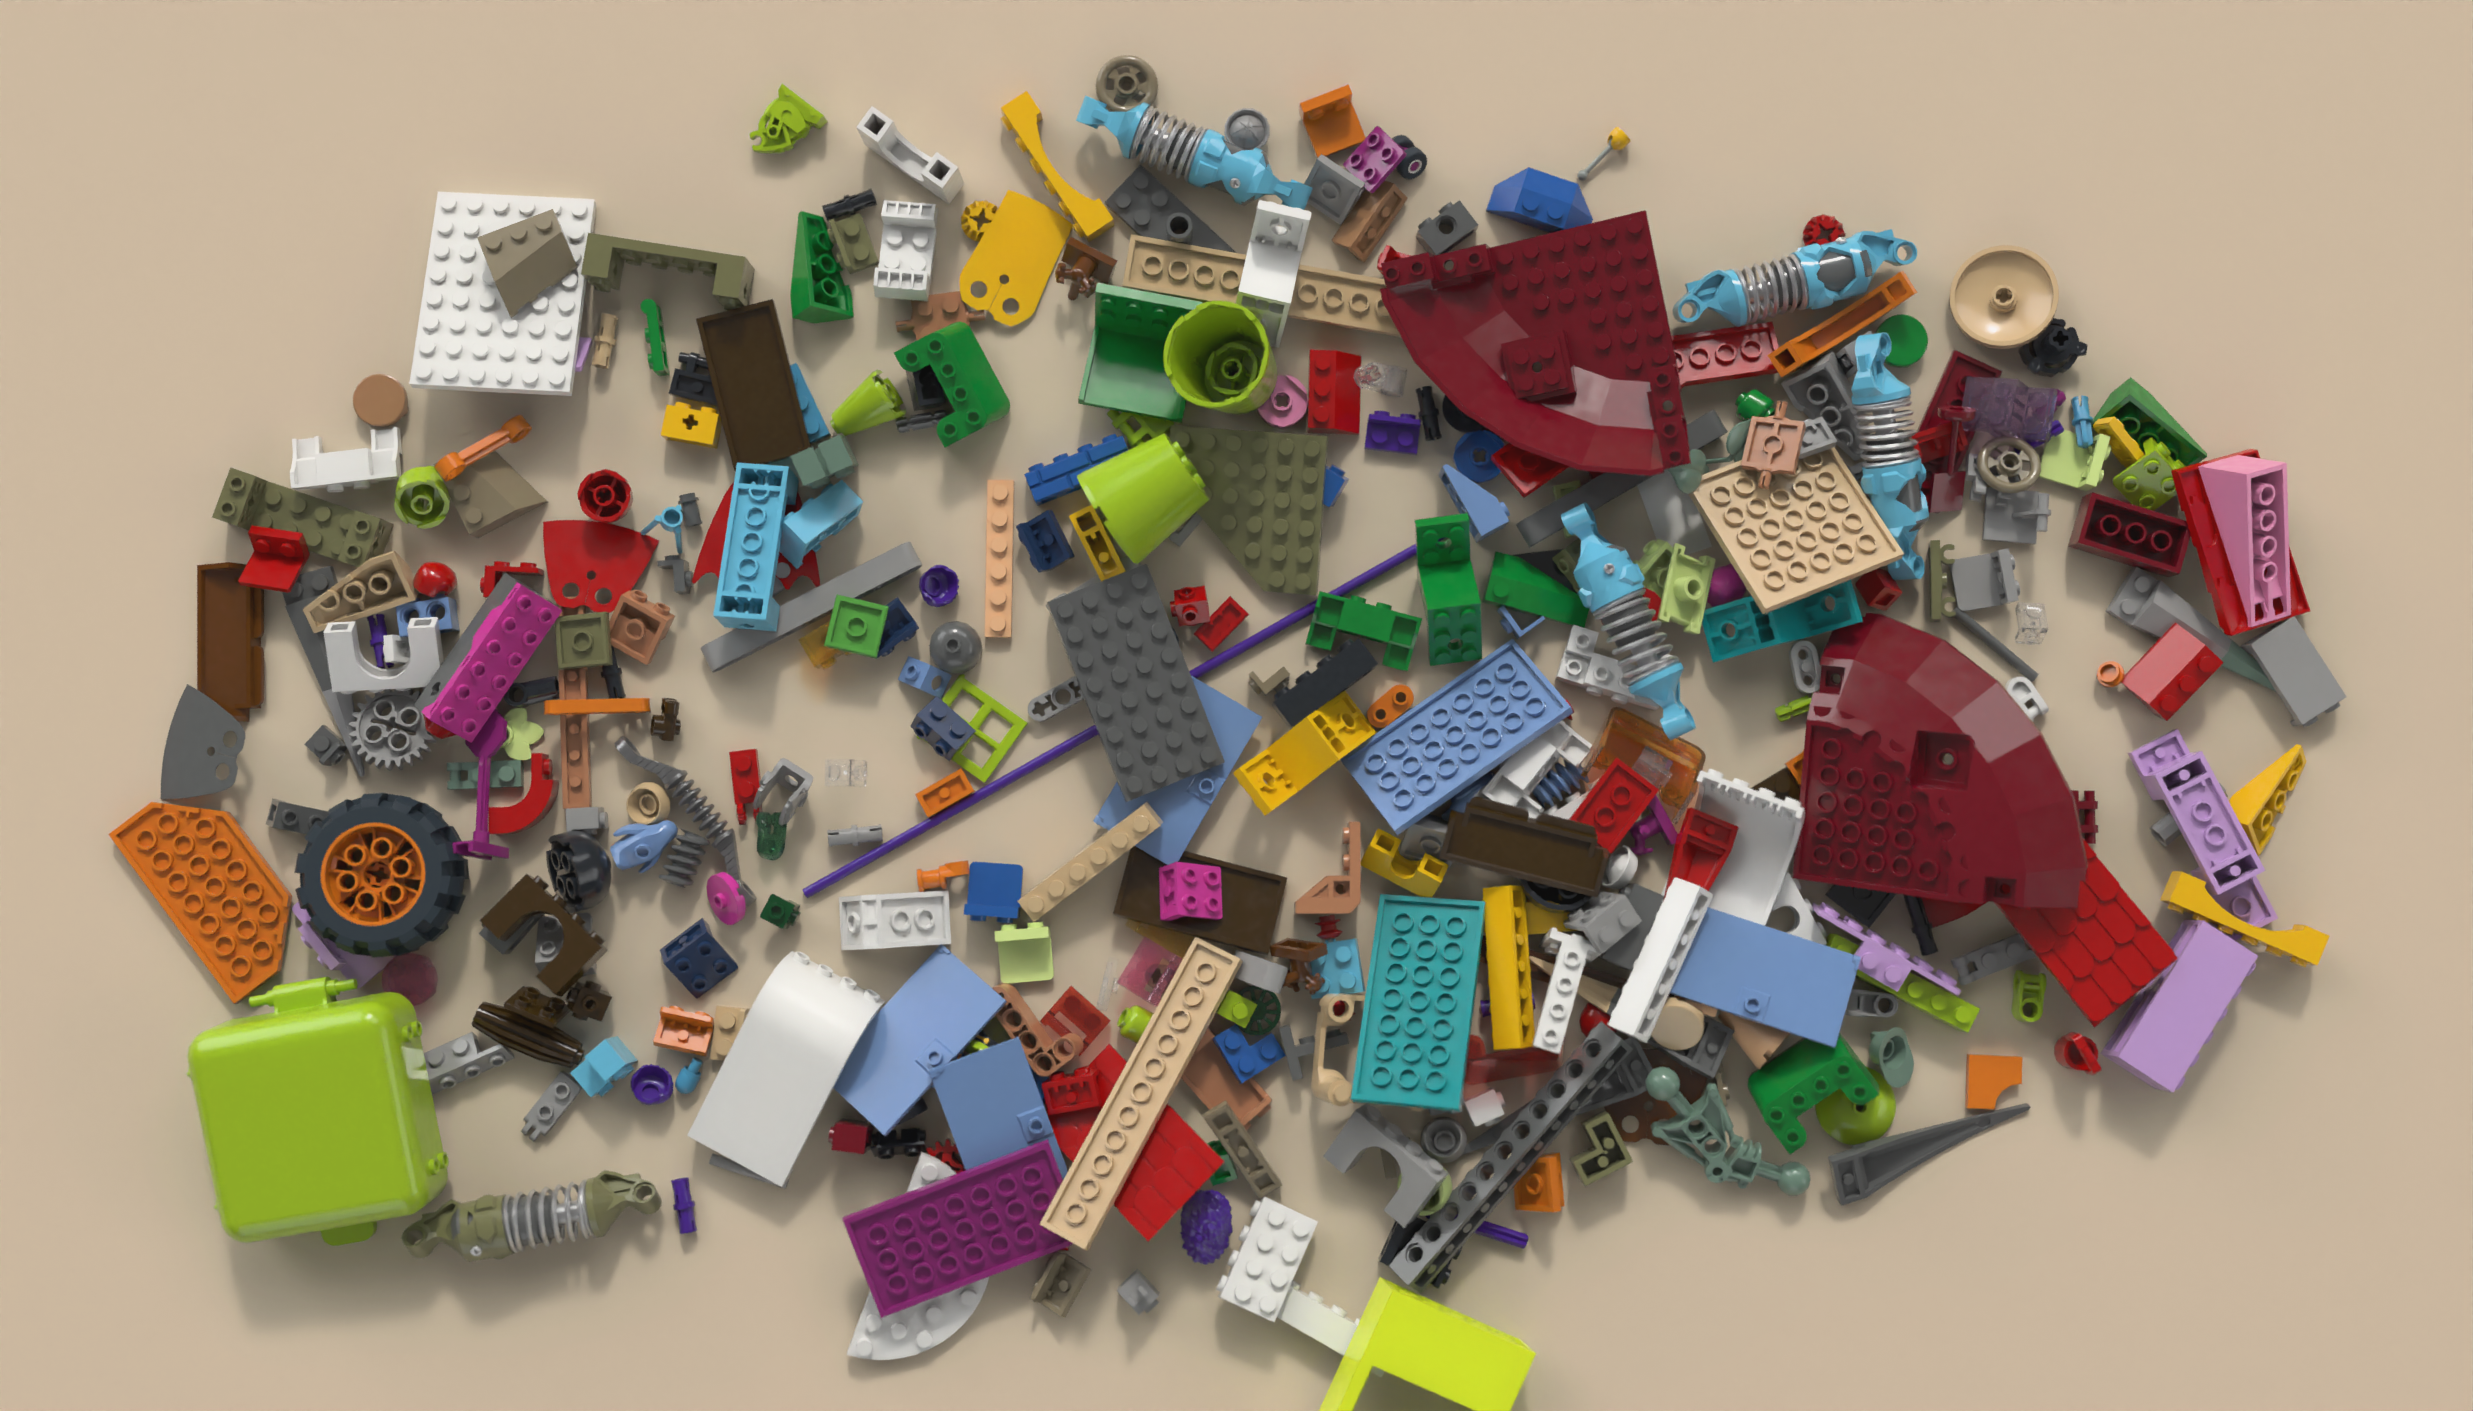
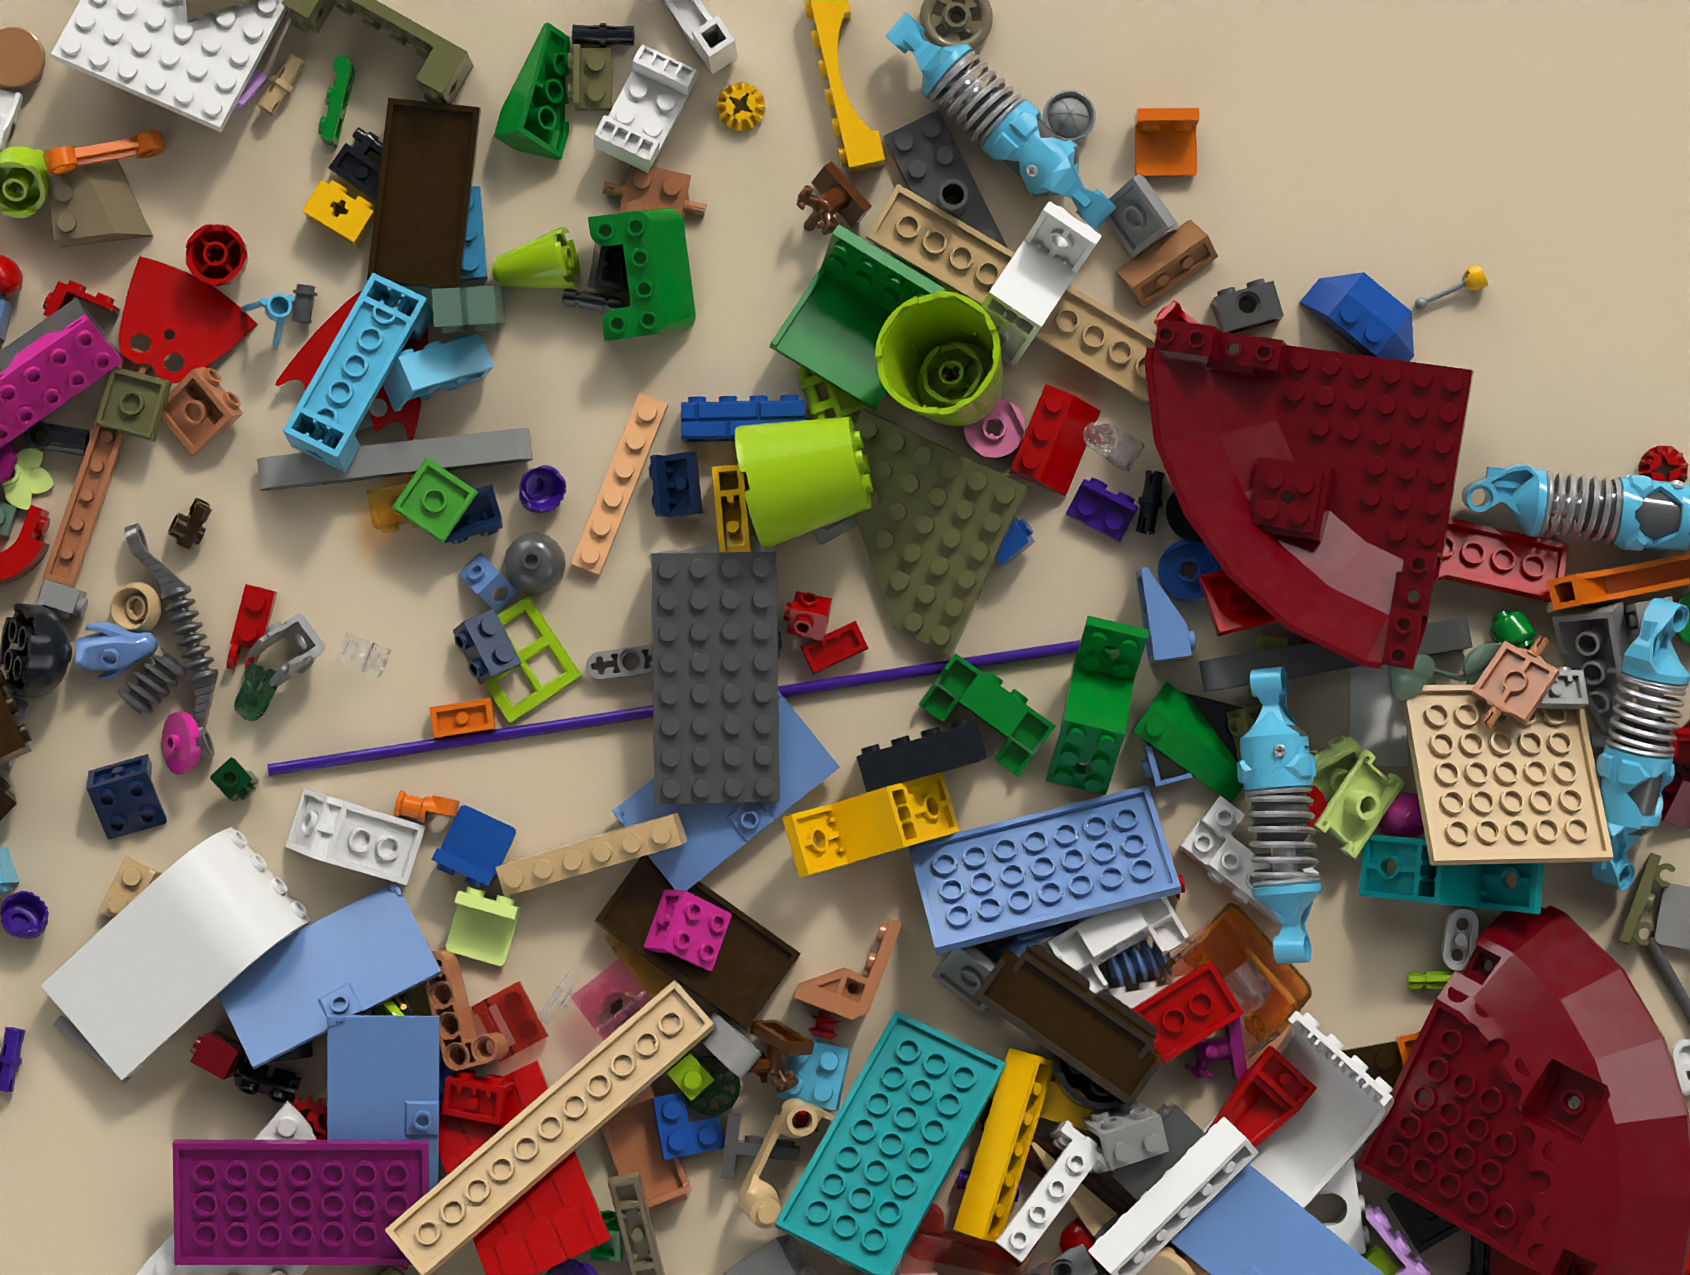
camera: 25 degrees right, 0 degrees up
(596, 706) = (121, 480): orange beam -> none
(612, 678) = (150, 456): black pin -> none
(681, 573) = (267, 371): dark grey bracket -> none
(684, 1031) = (81, 870): orange bracket -> none
(689, 1077) = (67, 922): dark azure cylinder -> none
(855, 835) = (347, 727): light grey pin -> none
(1018, 243) = (776, 151): yellow piece -> none
(1133, 1022) = (572, 1047): lime head -> none
(1275, 682) = (870, 734): dark tan bracket -> none
(1381, 155) = (1206, 198): magenta plate -> none
(1390, 706) = (985, 808): orange plate -> none
(1418, 876) = (942, 1006): yellow arch -> none
(1620, 868) = (1168, 1083): white hat -> none
(1878, 589) = (1573, 884): red panel -> none

